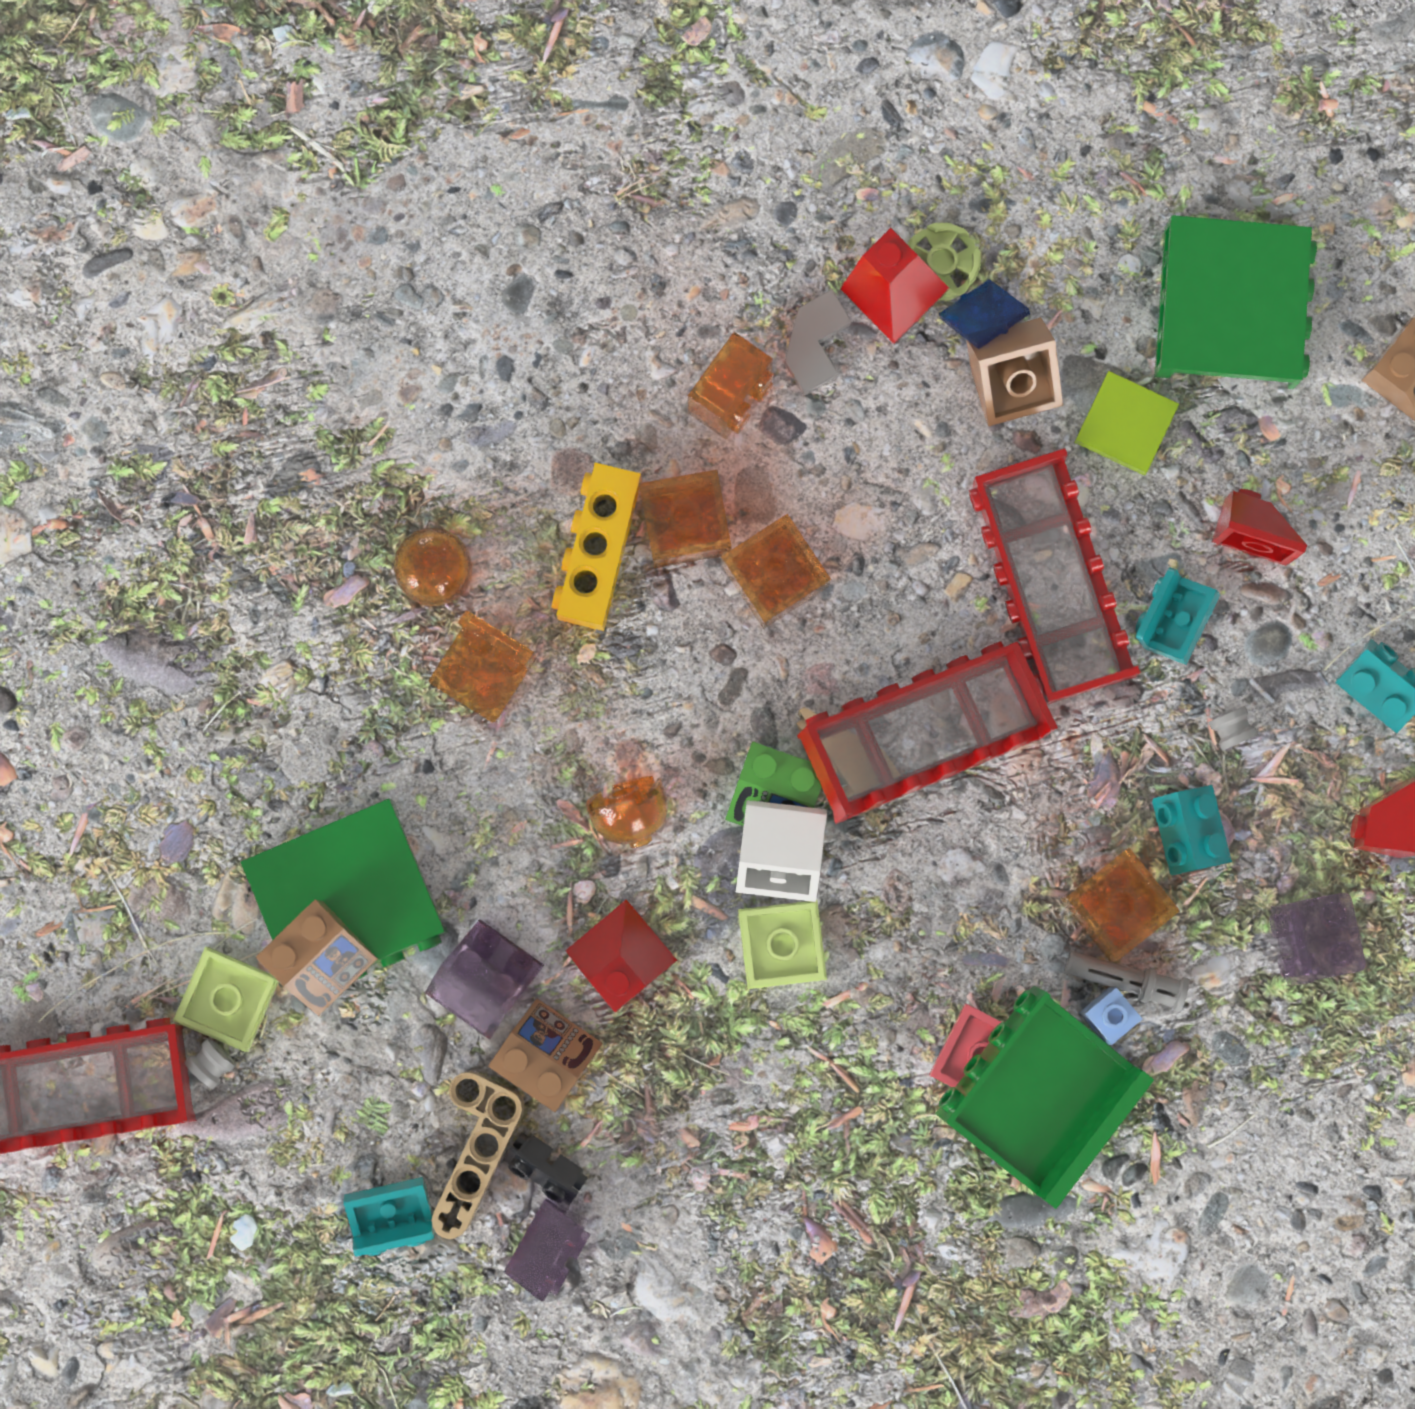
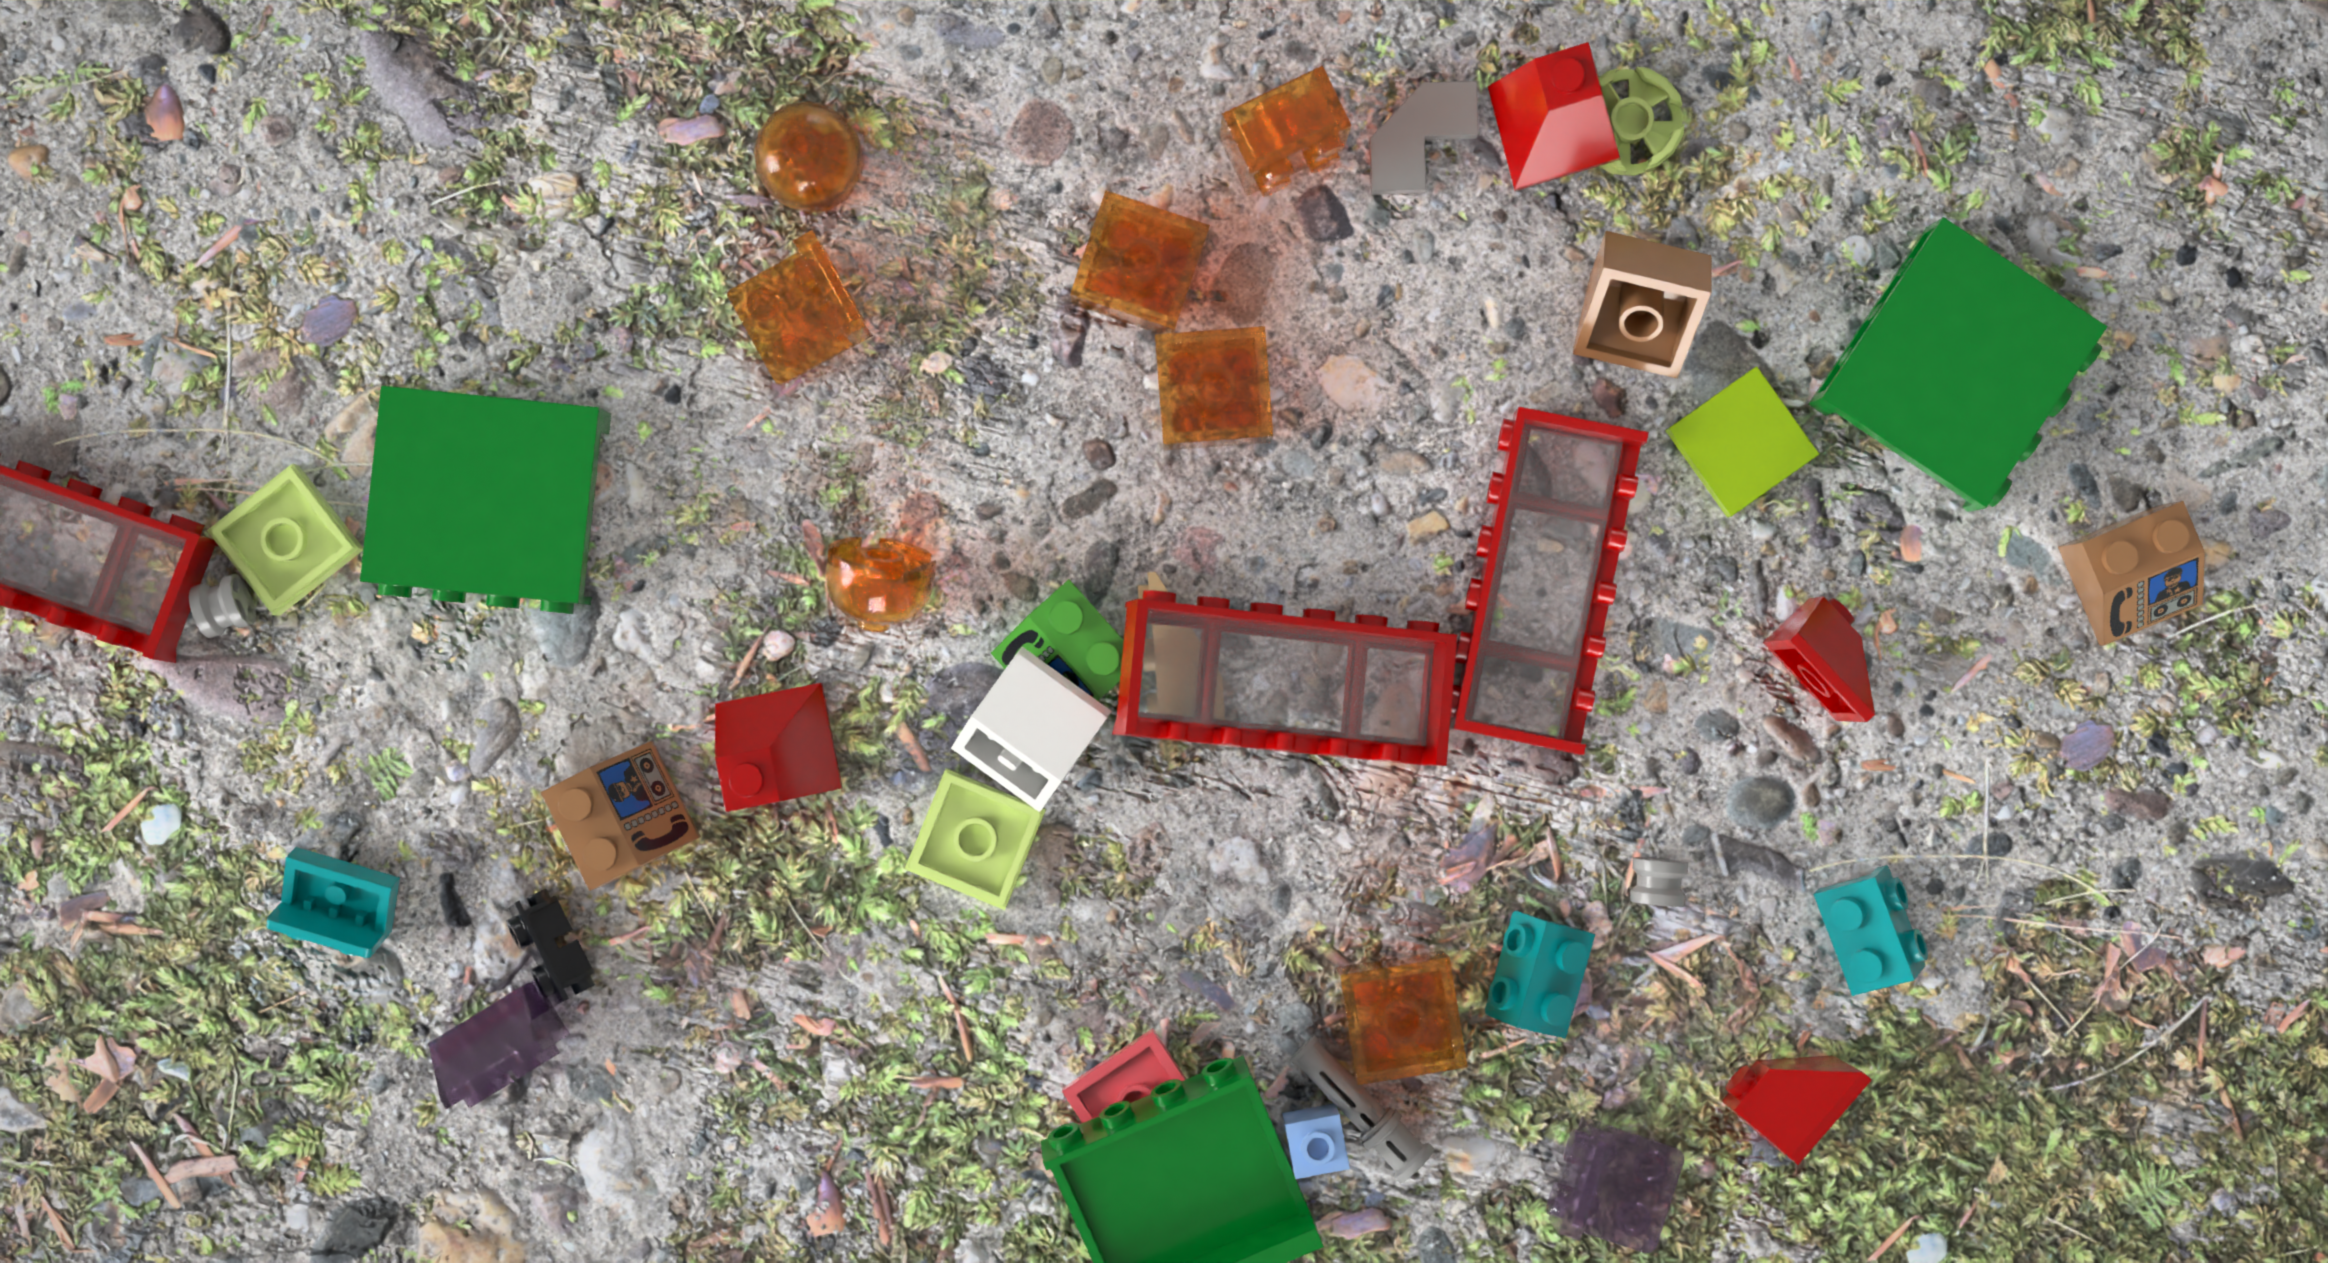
camera: 30 degrees right, 5 degrees up
(316, 957) = (404, 550): medium nougat slope -> none
(471, 1157) = (470, 887): tan beam -> none
(484, 979) = (598, 684): clear purple slope -> none
(623, 490) = (975, 312): yellow brick -> none
(984, 313) = (1644, 213): clear blue piece -> none
(1176, 616) = (1667, 709): teal bracket -> none

